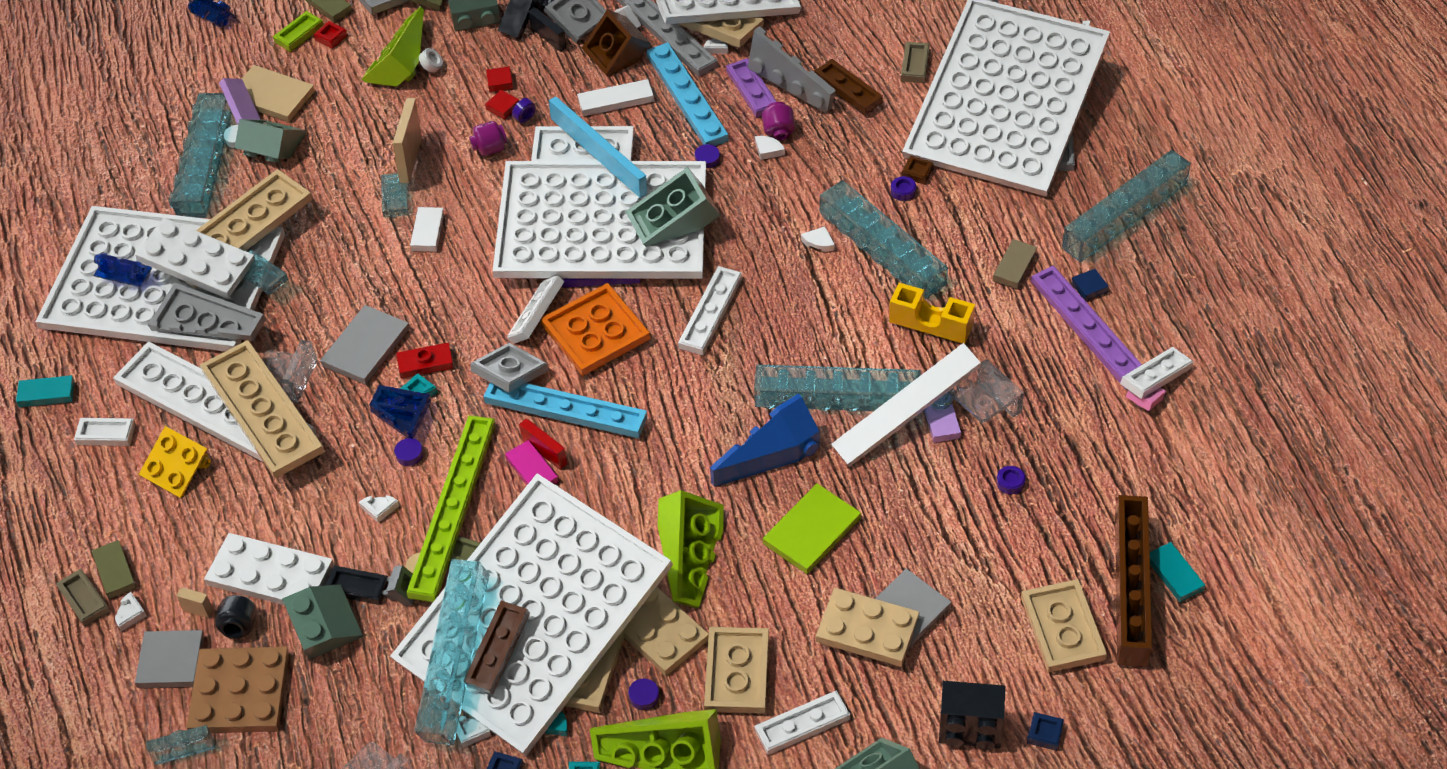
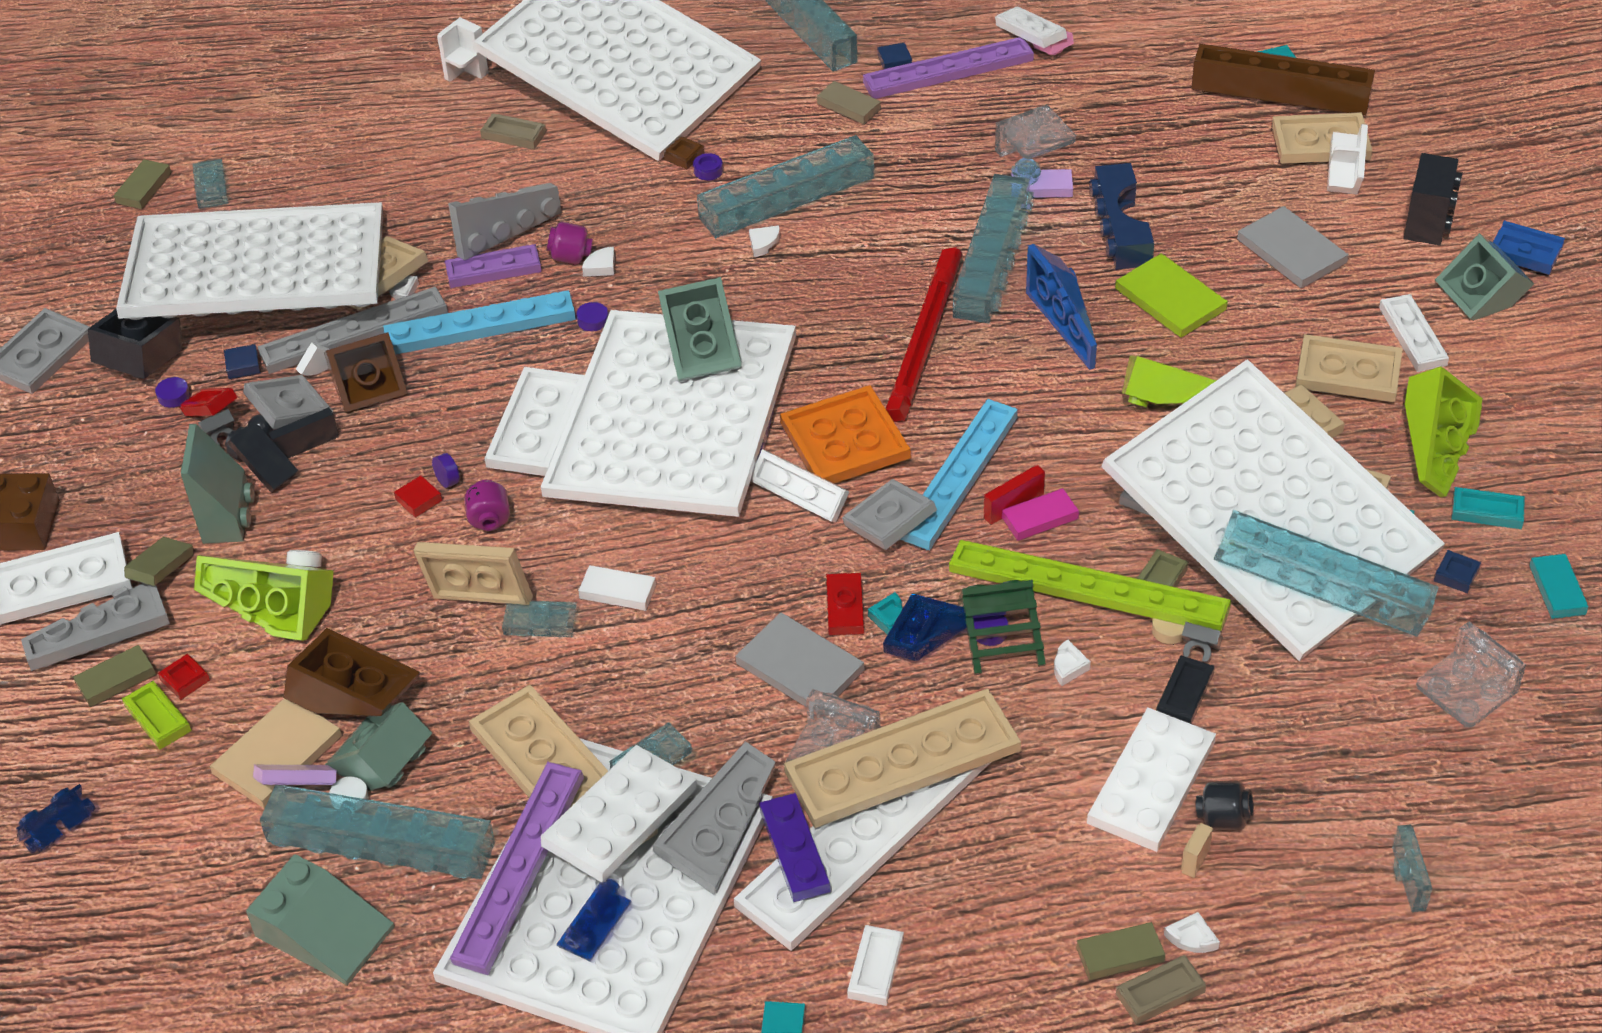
camera: 80 degrees left, 5 degrees down
(134, 144) = (318, 920): none -> sand green slope
(145, 220) = (515, 870): none -> medium lavender tile
(169, 658) = (1274, 887): light grey tile -> none
(174, 461) = (956, 874): yellow hinge -> none
(182, 364) = (794, 847): none -> dark purple plate
(239, 689) = (1327, 815): medium nougat plate -> none
(315, 102) = (345, 677): none -> reddish brown slope
(322, 619) = (1249, 719): sand green slope -> none
(420, 446) = (995, 600): none -> dark green plate
(496, 647) = (1310, 521): reddish brown plate -> none
(499, 79) = (367, 496): red tile -> none
(598, 147) = (560, 390): medium azure tile -> none
(615, 97) = (455, 387): white tile -> none
(643, 694) = (1369, 446): dark purple tile -> none
(710, 310) = (843, 340): white tile -> none
(716, 359) = (923, 334): none -> red piece
(849, 86) = (558, 172): reddish brown plate -> none
(867, 627) = (1311, 263): tan plate -> none
(906, 405) = (1042, 188): white tile -> none
(914, 312) = (901, 172): yellow arch -> none
(934, 466) = (1127, 239): none -> dark blue arch
(1010, 480) = (1135, 149): dark purple tile -> none
(1021, 644) = (1347, 161): none -> white panel

